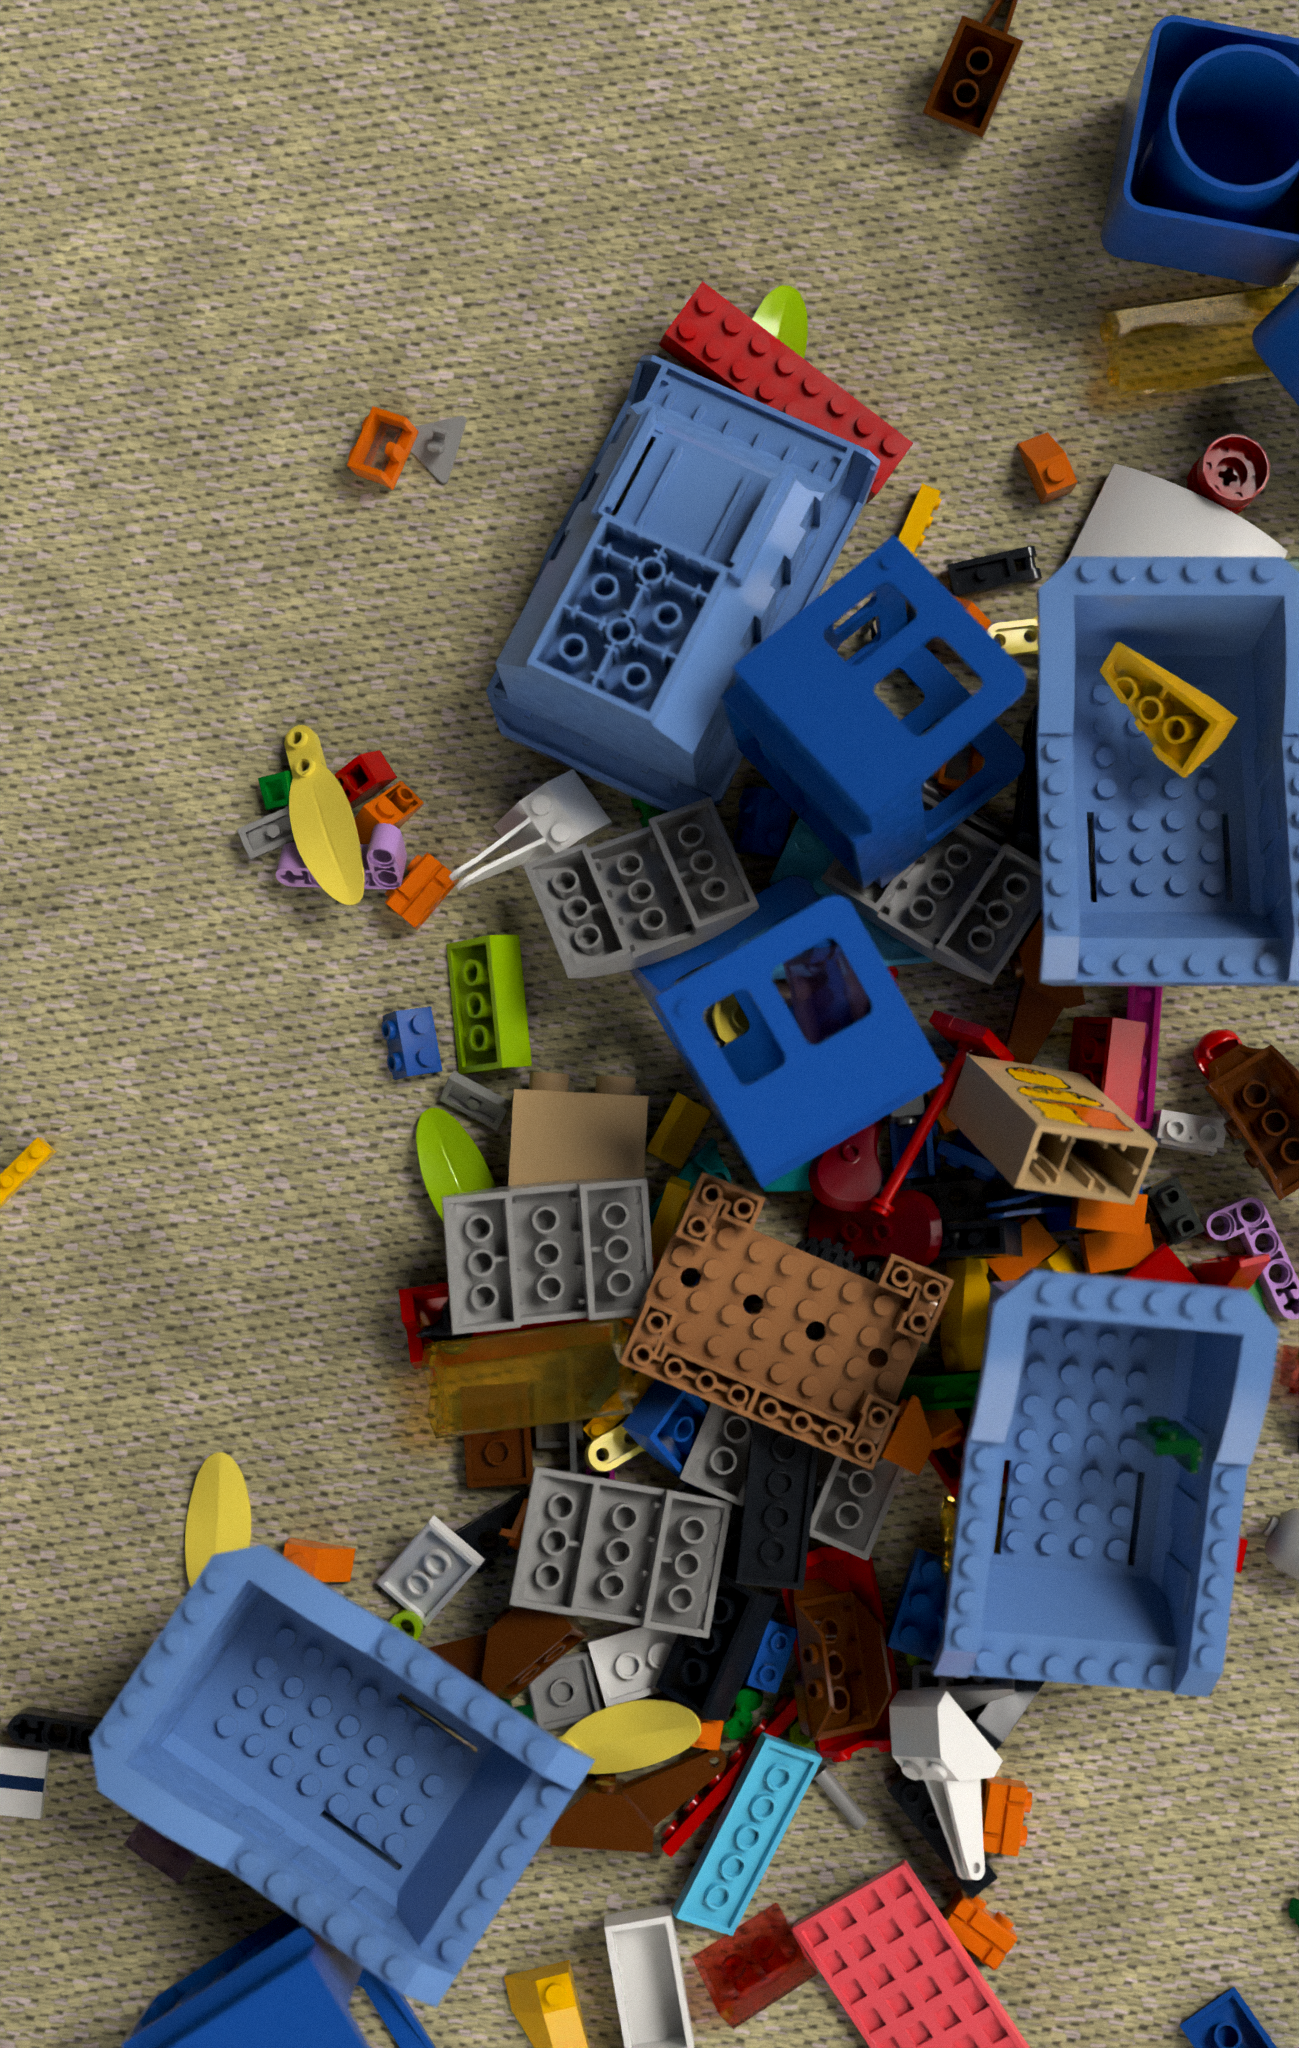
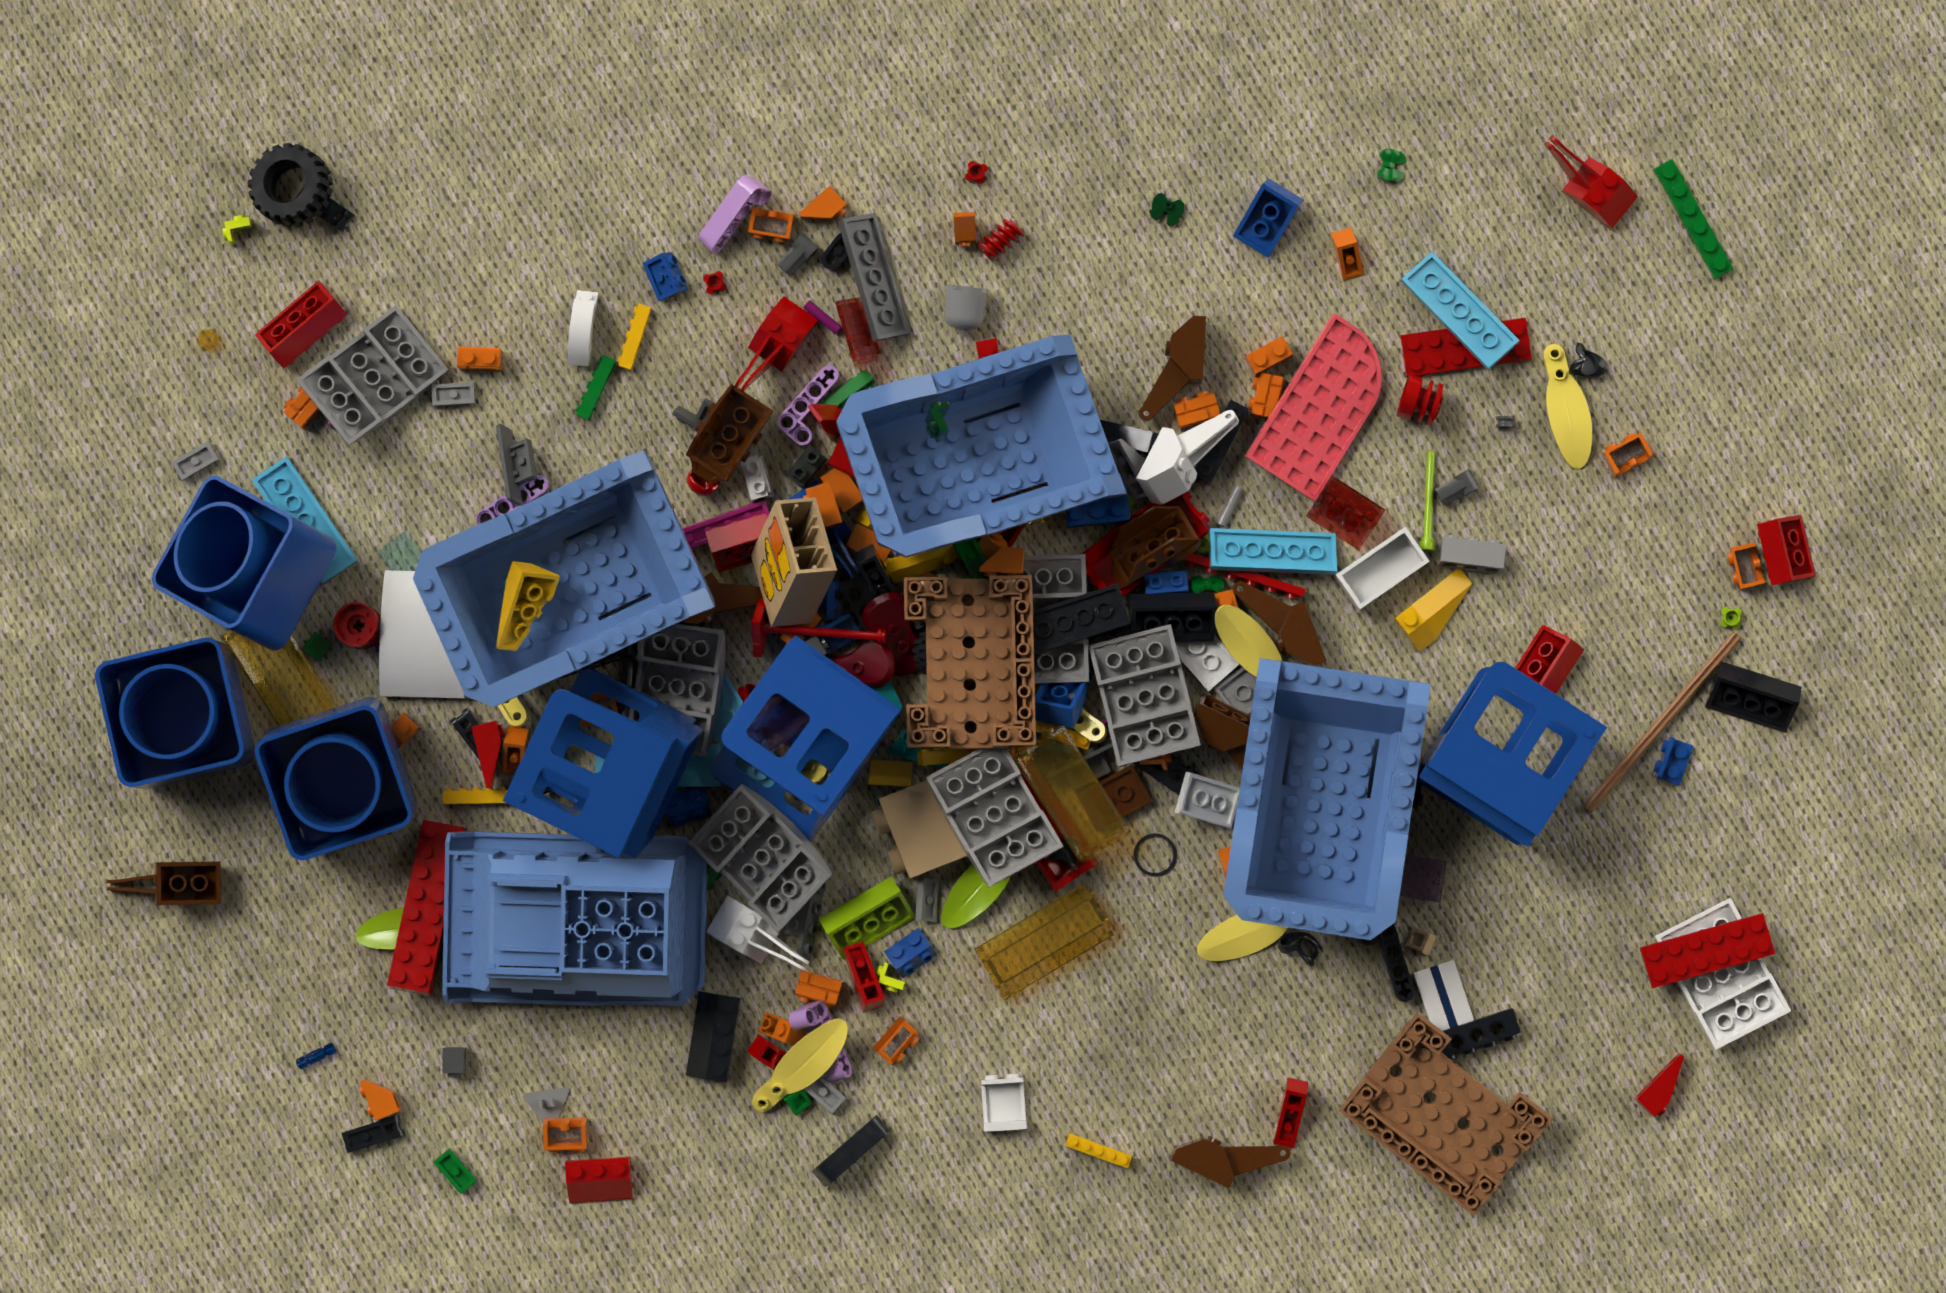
camera: 110 degrees left, 0 degrees up
(84, 1784) = (1420, 941): none -> tan slope
(138, 1077) = (1003, 1103): none -> white panel
(169, 1595) = (1291, 942): none -> black piece
(171, 832) = (851, 1151): none -> black beam
(296, 966) = (896, 1040): none -> orange window
(300, 467) = (599, 1179): none -> red slope
(338, 1241) = (1044, 941): none -> clear yellow panel
(360, 1452) = (1157, 835): none -> black piece
(379, 996) = (891, 983): none -> neon yellow bracket
(402, 276) = (455, 1171): none -> green plate
(407, 961) = (863, 977): none -> red slope
(421, 713) = (713, 1036): none -> black slope
(506, 186) = (372, 1134): none -> black plate
(517, 912) = (805, 924): none -> dark grey bracket
(550, 217) = (381, 1099): none -> orange slope
(555, 340) = (454, 1061): none -> dark grey brick
(650, 158) = (316, 1055): none -> clear blue axle
(972, 579) = (489, 745): none -> red slope
(1030, 332) = (336, 778): none -> blue piece
(1035, 1960) = (1268, 356): none -> orange brick
(1076, 1831) = (1183, 367): none -> reddish brown slope
(1222, 409) = (317, 646): none -> green plate

